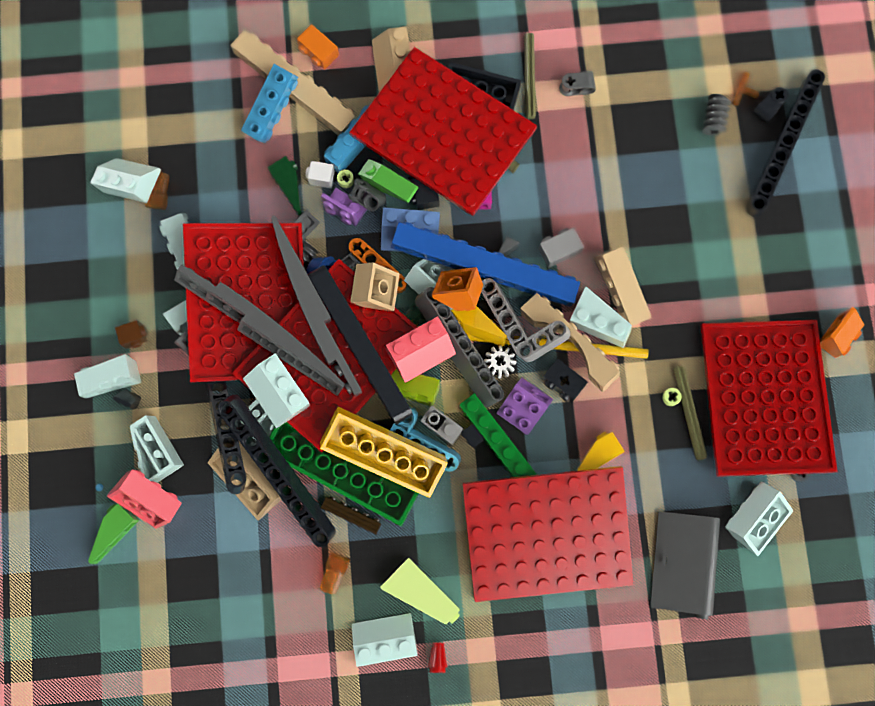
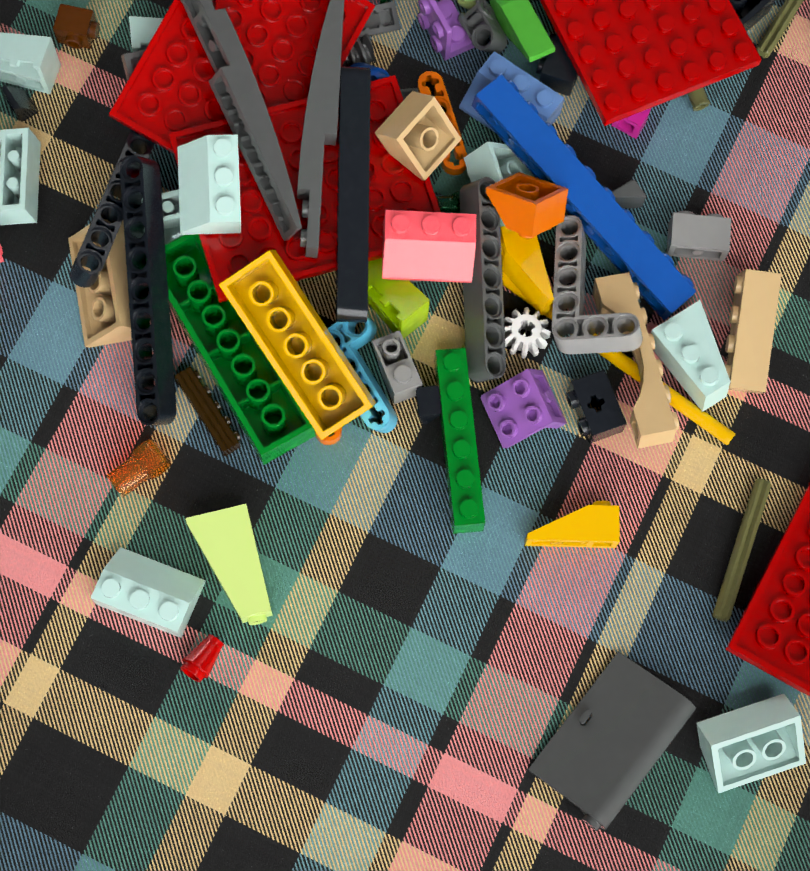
camera: 25 degrees right, 5 degrees down
(548, 533) = (449, 585): plate -> none
(665, 397) = (737, 507): yellowish green bush -> none

